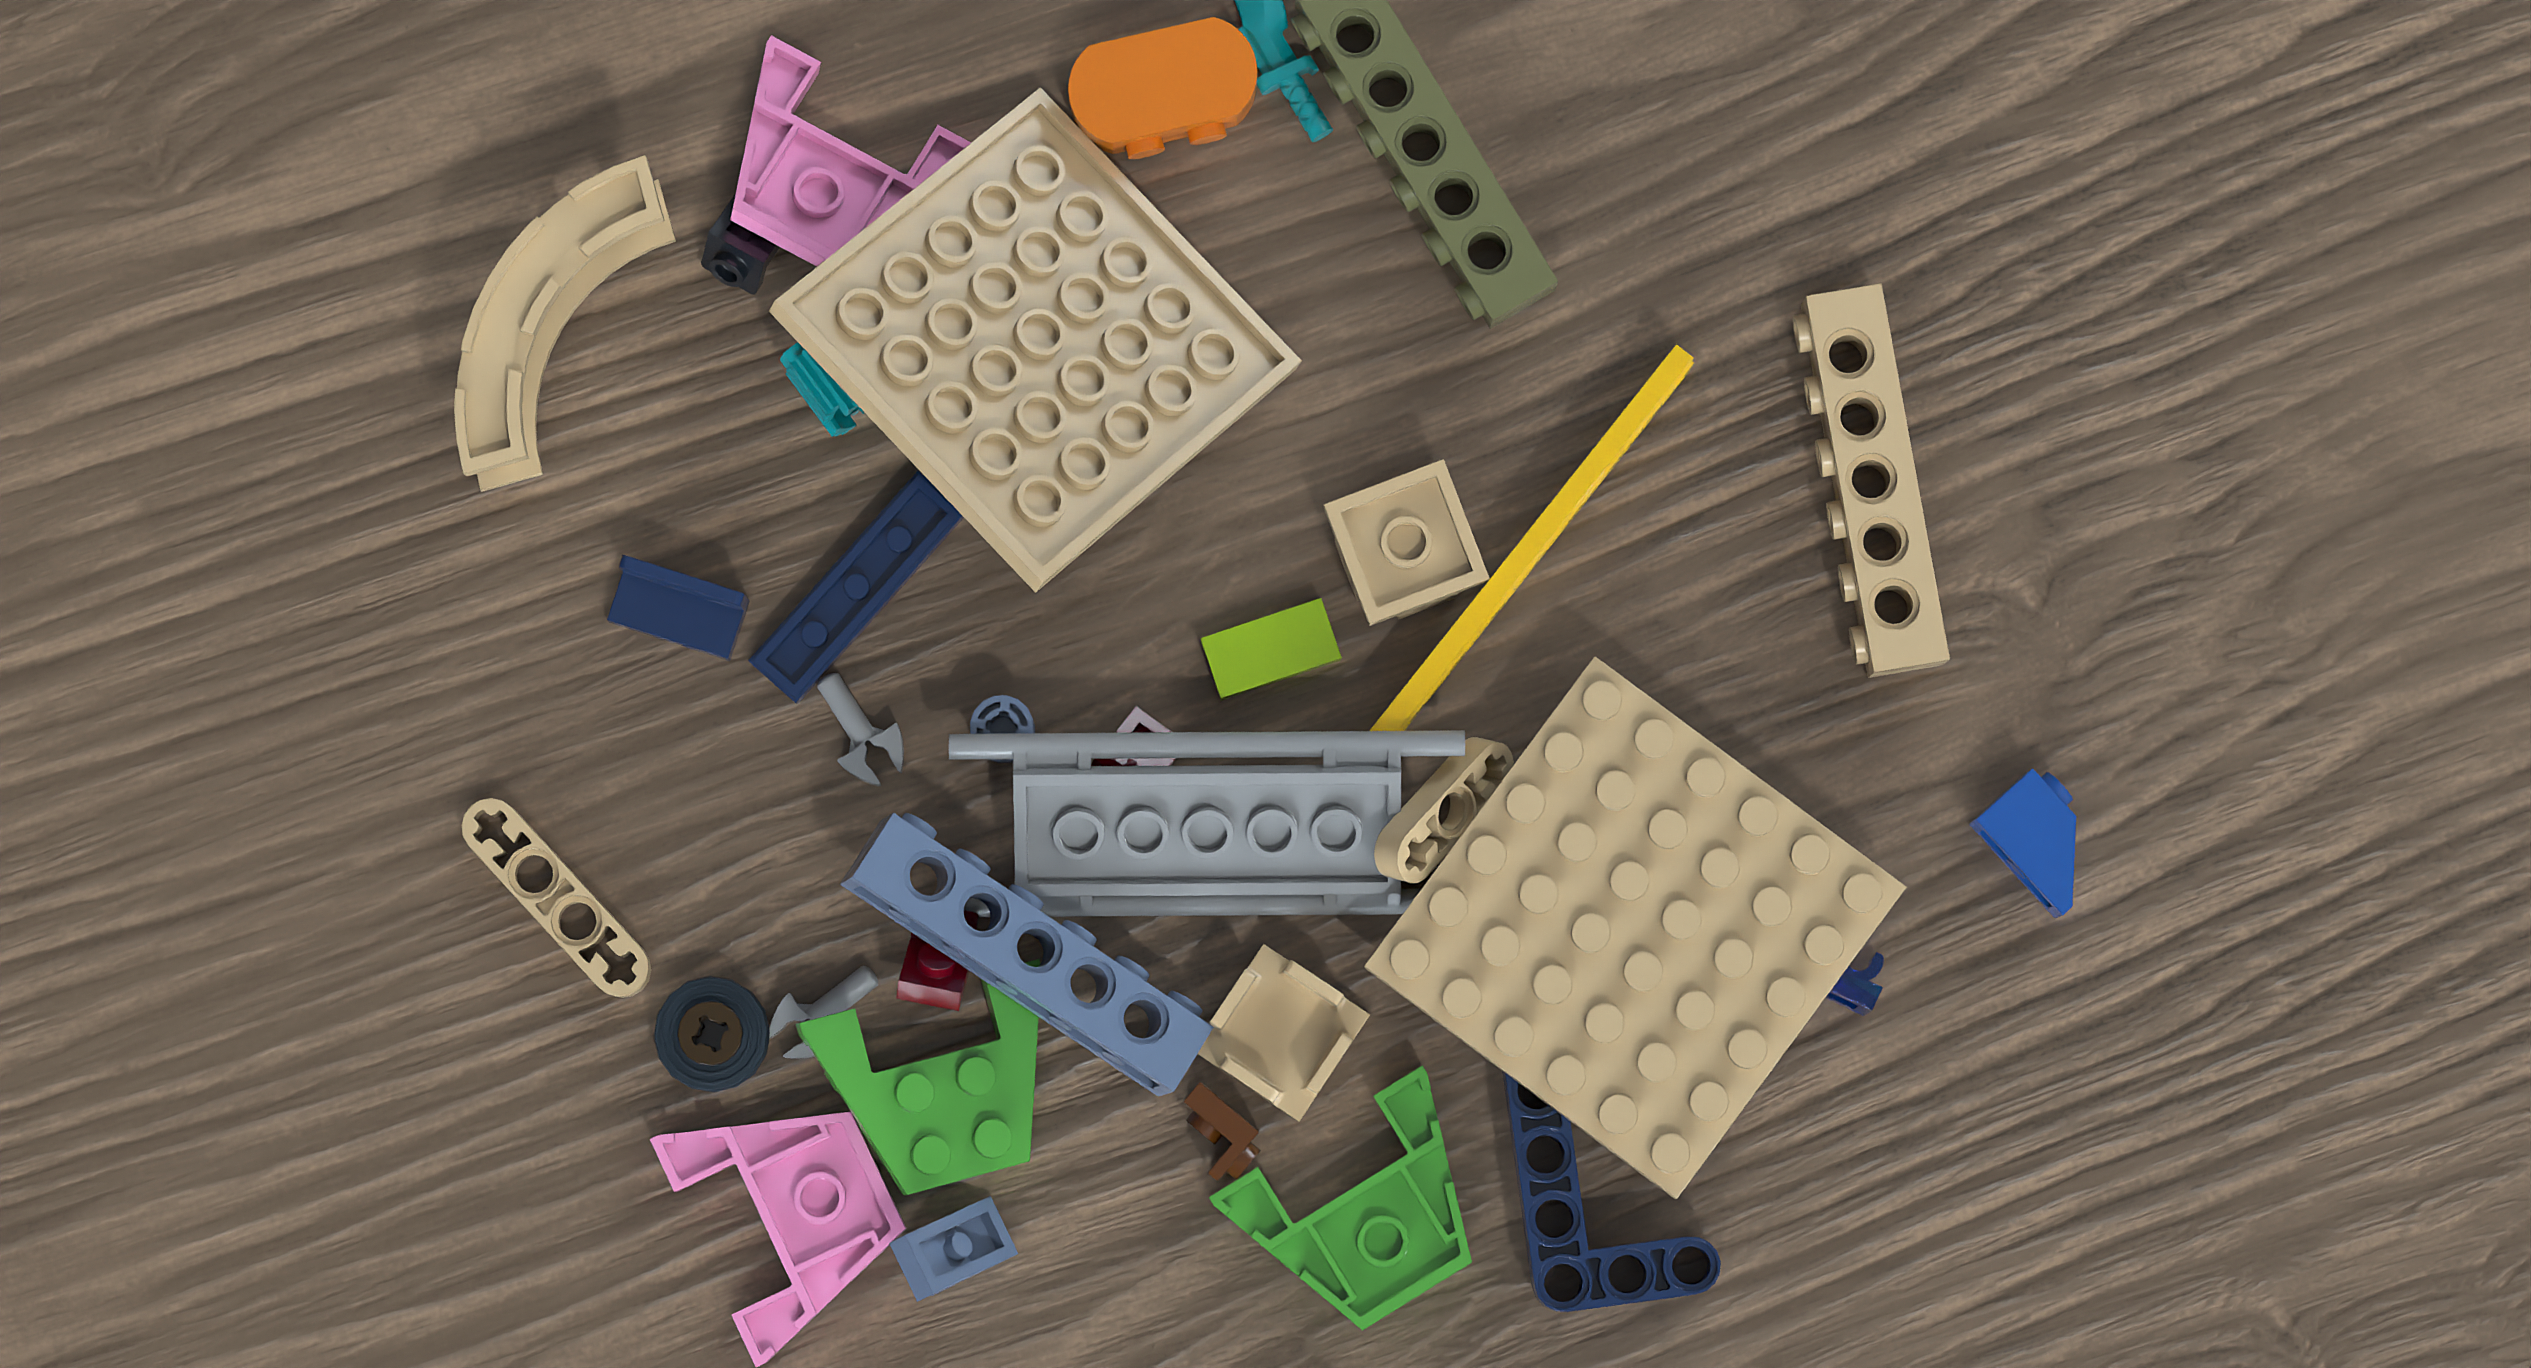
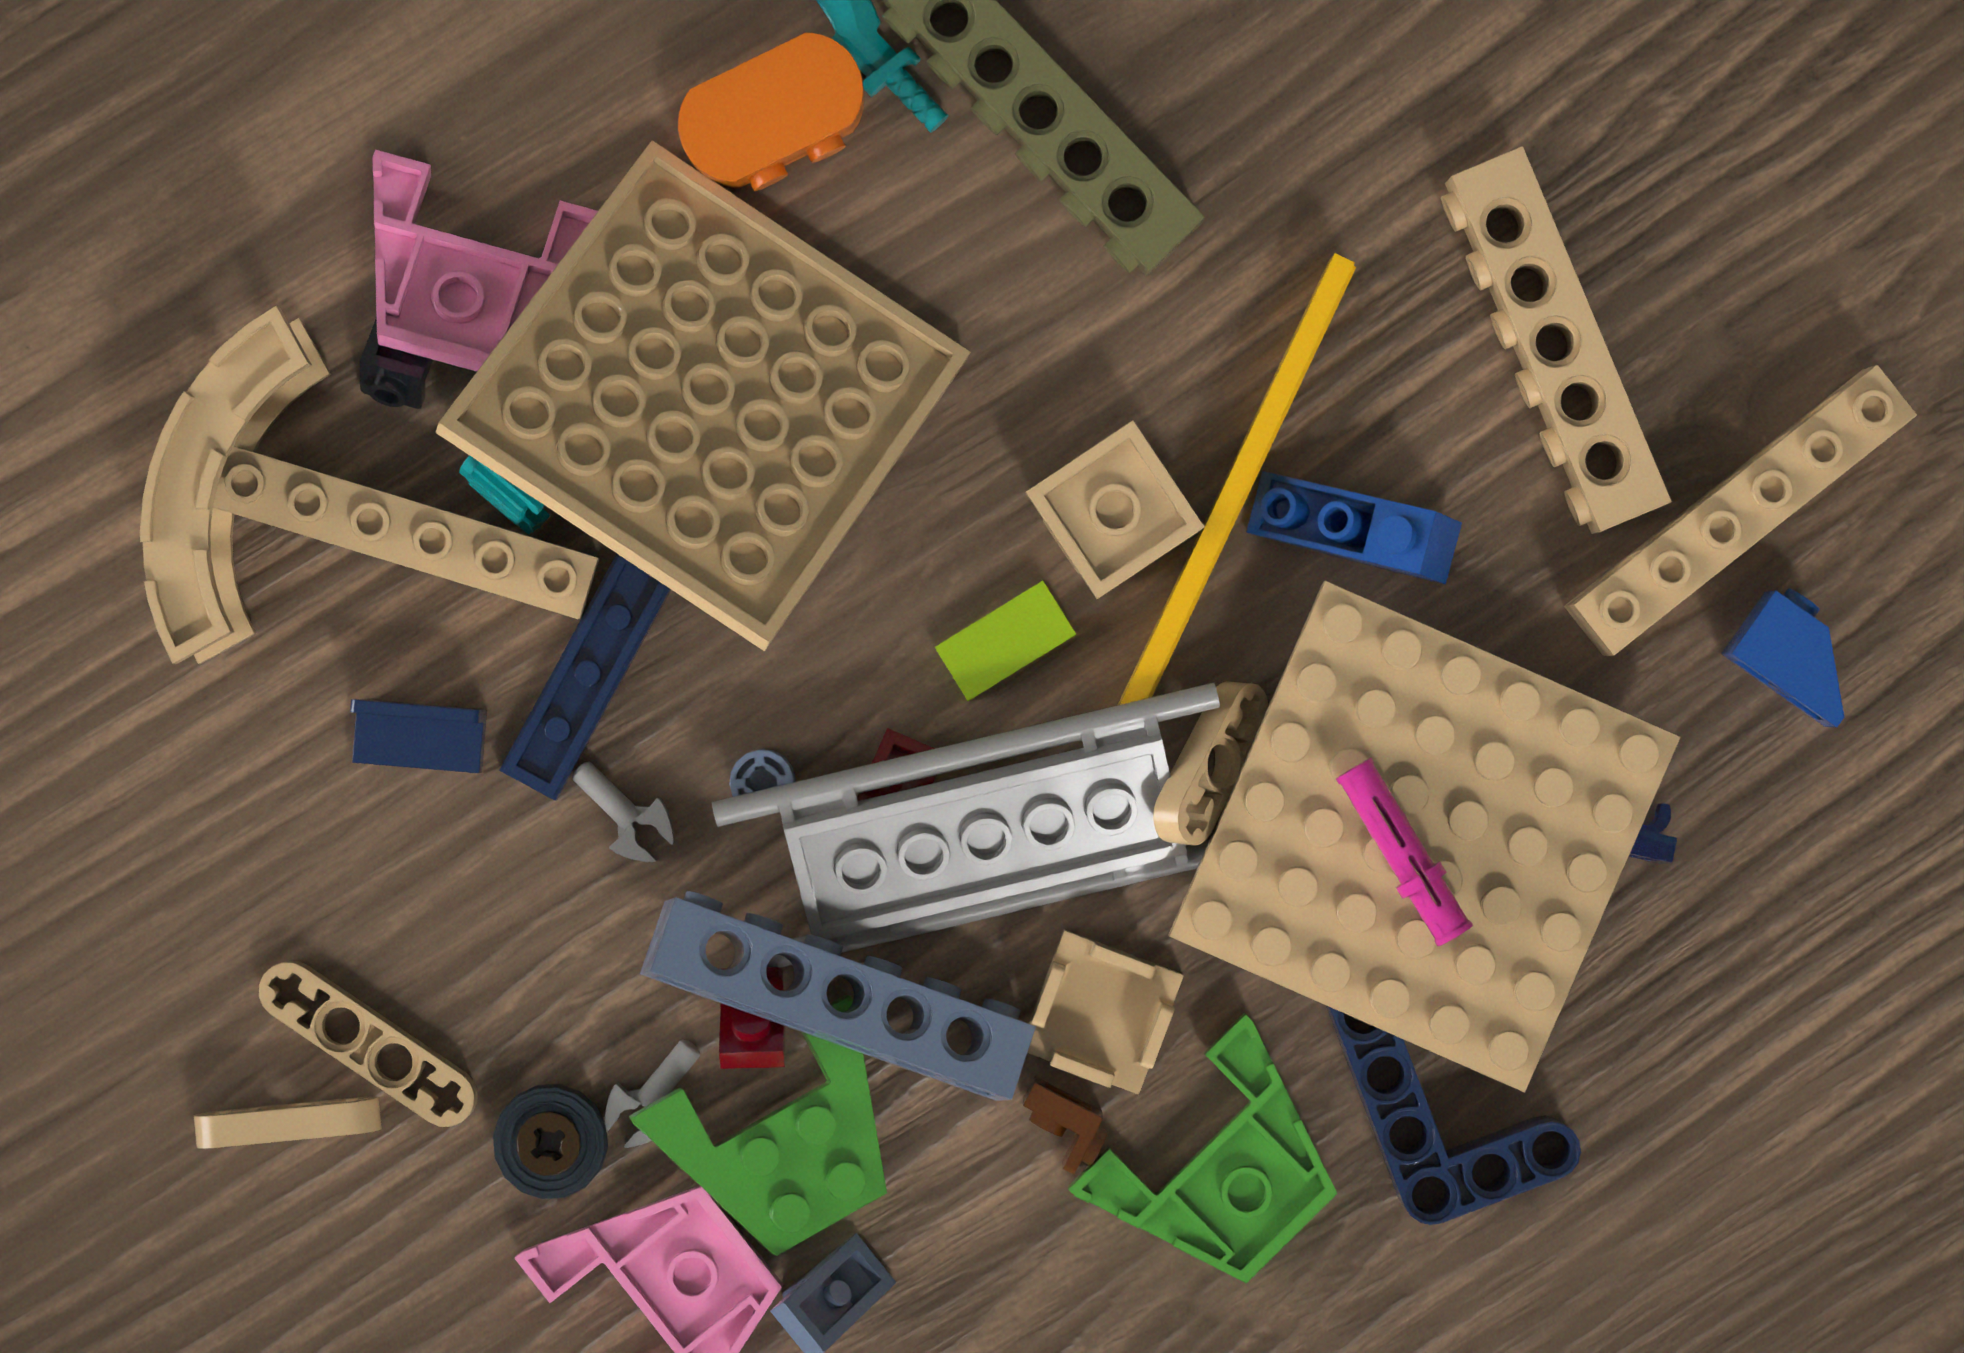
camera: 15 degrees left, 5 degrees up
(459, 955) = (287, 1122): none -> tan beam
(714, 407) = (405, 532): none -> tan brick
(1634, 1006) = (1445, 917): none -> dark pink pin
(1638, 616) = (1355, 527): none -> blue slope
(2015, 685) = (1740, 510): none -> tan brick

